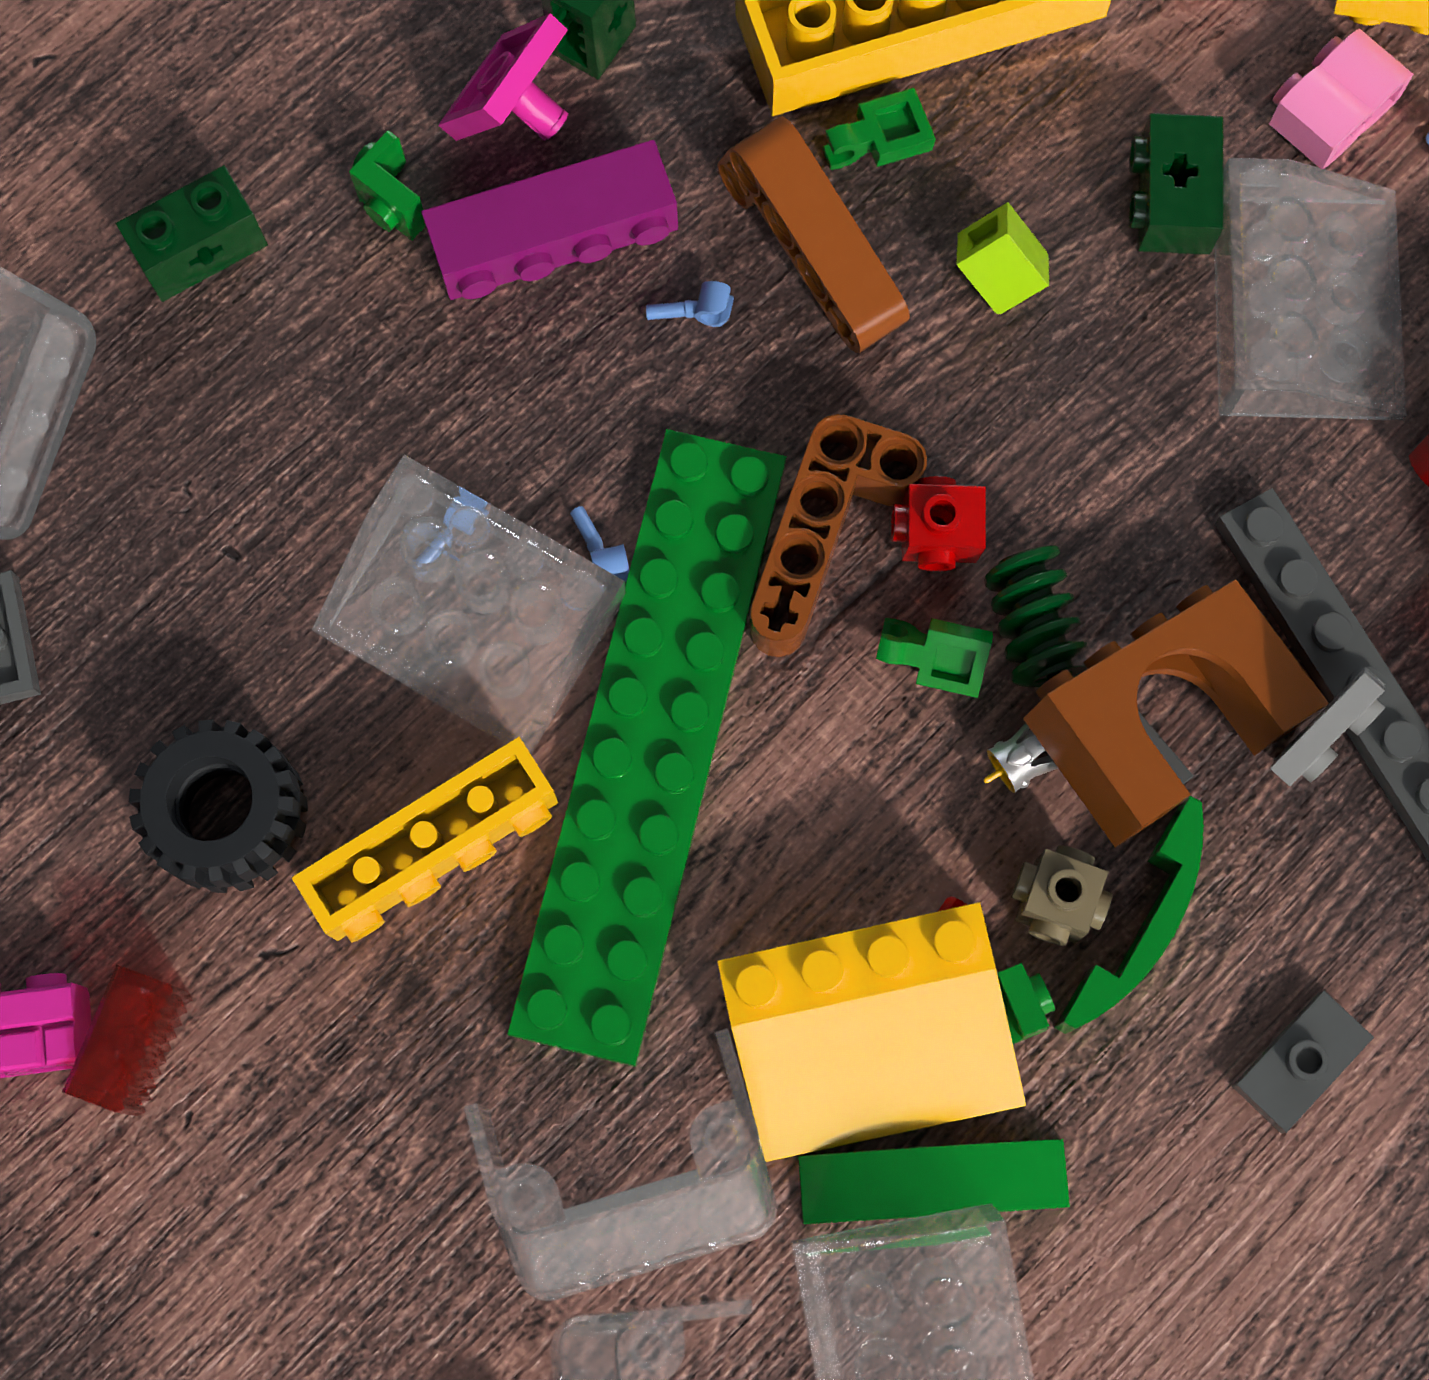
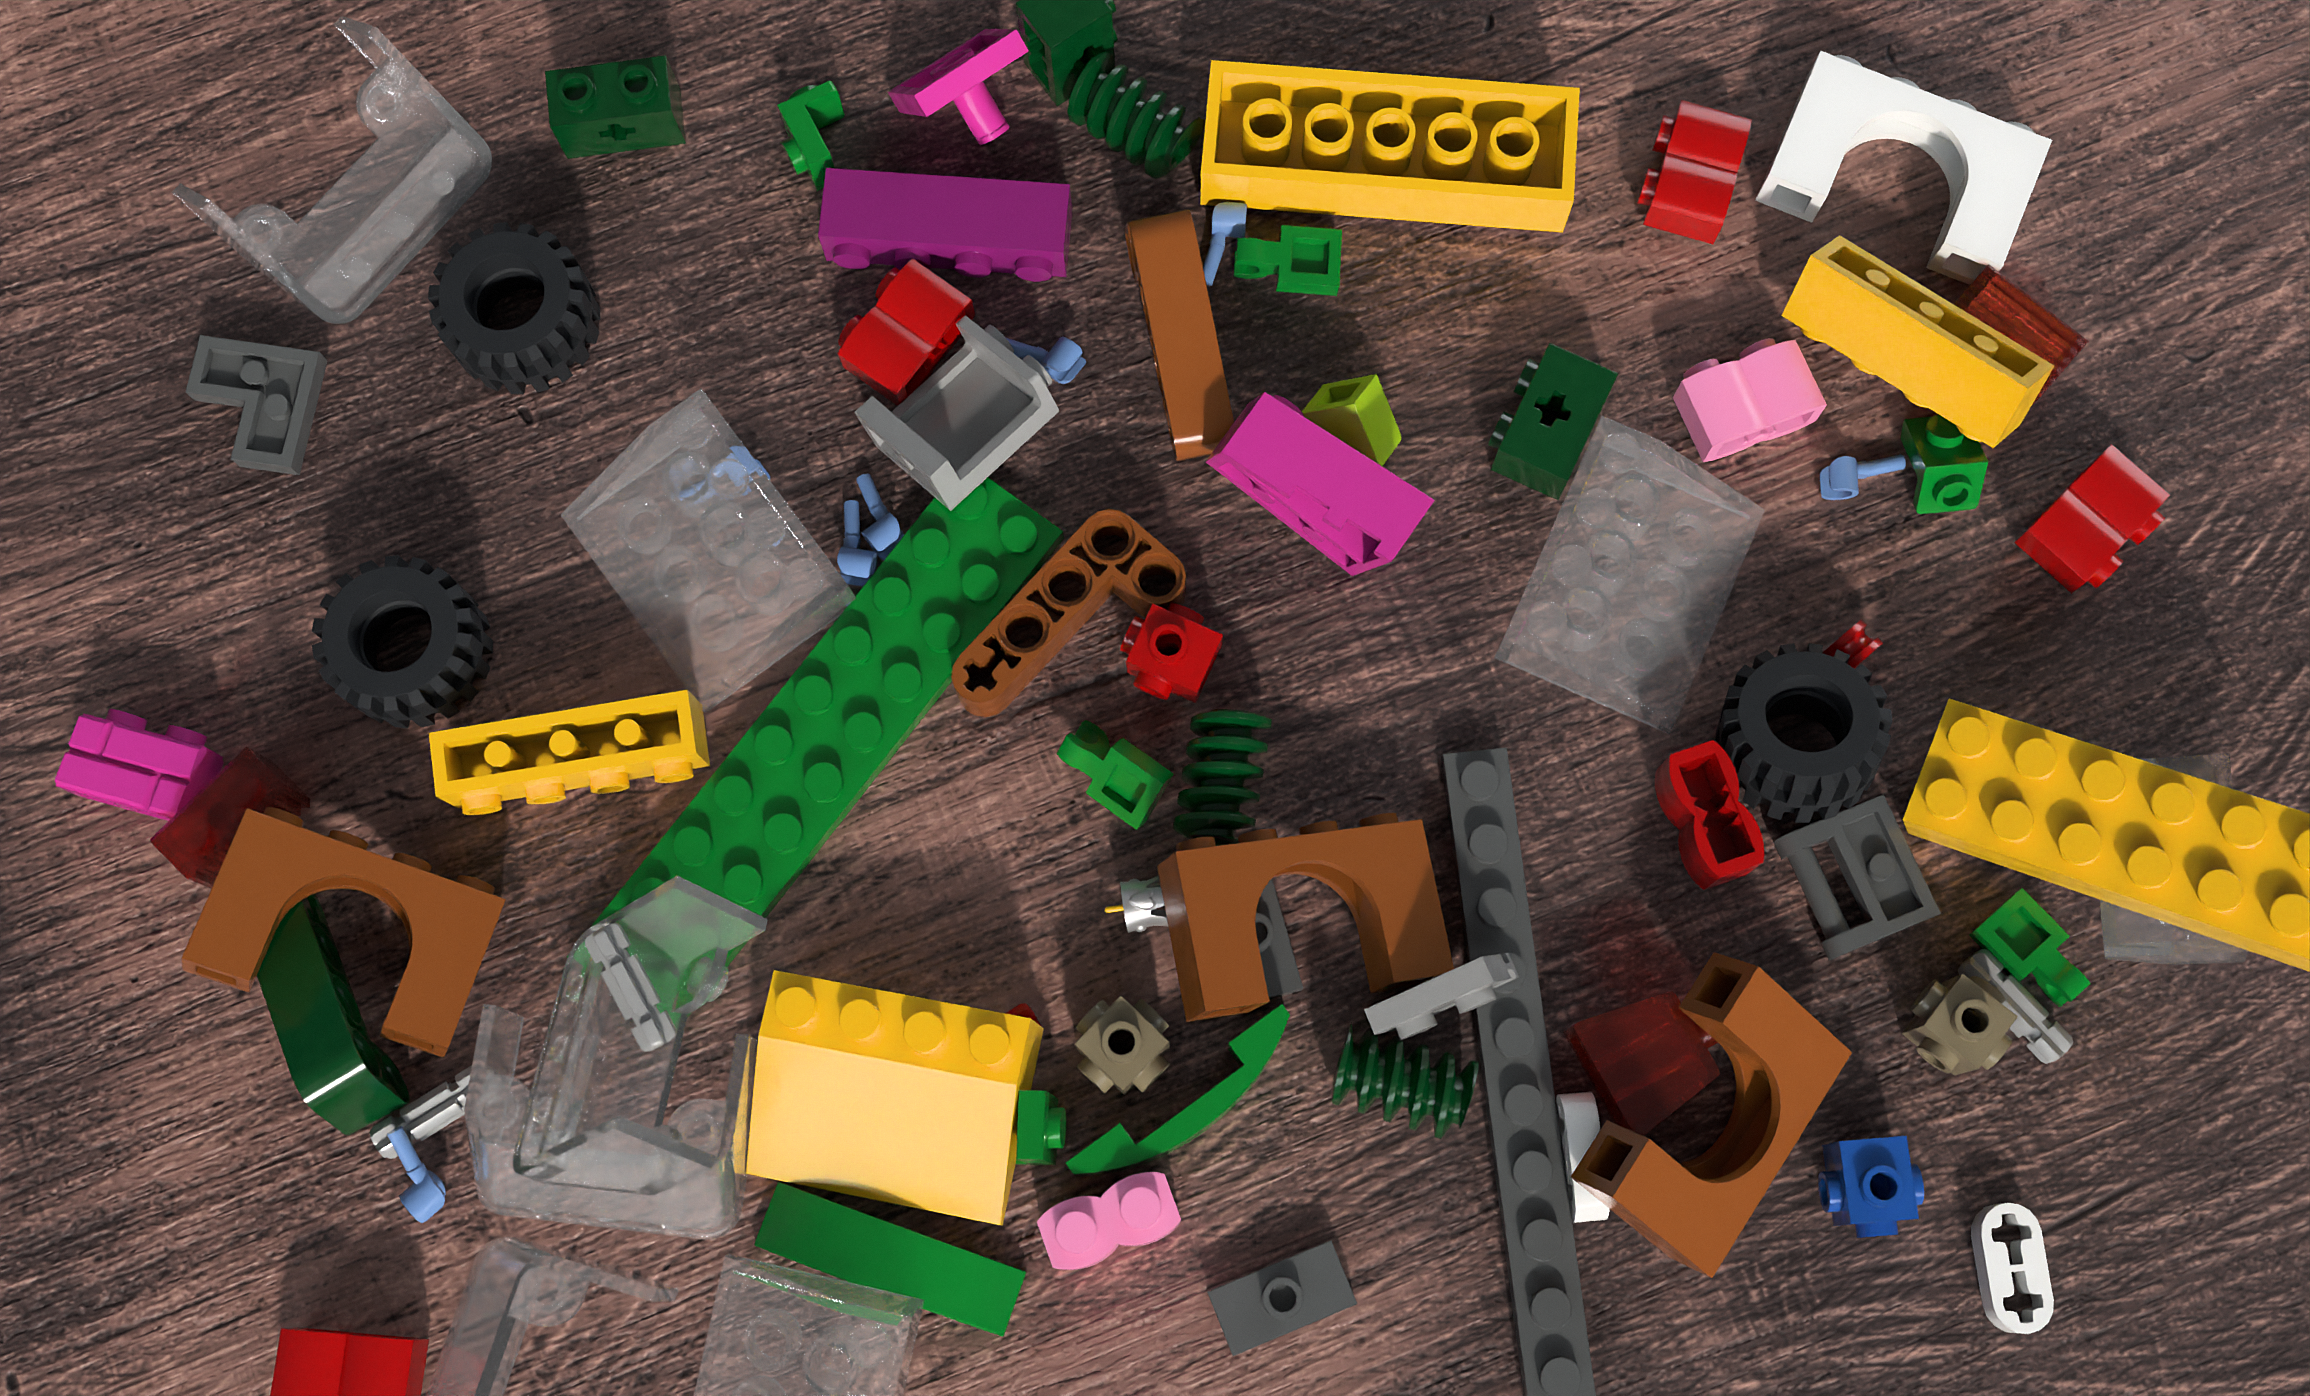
camera: 25 degrees right, 0 degrees up
(154, 418) = (485, 274): none -> black tyre
(293, 1180) = (321, 1025): none -> dark green beam
(378, 1048) = (280, 863): none -> dark orange arch
(443, 1234) = (425, 1114): none -> light grey axle
(475, 1313) = (428, 1191): none -> medium blue hand
(559, 333) = (904, 332): none -> red brick
(597, 1031) = (630, 987): none -> light grey axle
(603, 1089) = (594, 1091): none -> clear windscreen
(623, 520) = (886, 531): none -> medium blue hand
(650, 386) = (964, 415): none -> light grey panel
(679, 60) = (1131, 121): none -> dark green piece
(808, 119) = (1227, 221): none -> medium blue hand
(1010, 319) = (1319, 485): none -> dark pink wedge
(1134, 1044) = (1091, 1227): none -> bright pink brick
(1326, 818) = (1404, 1082): none -> dark green piece

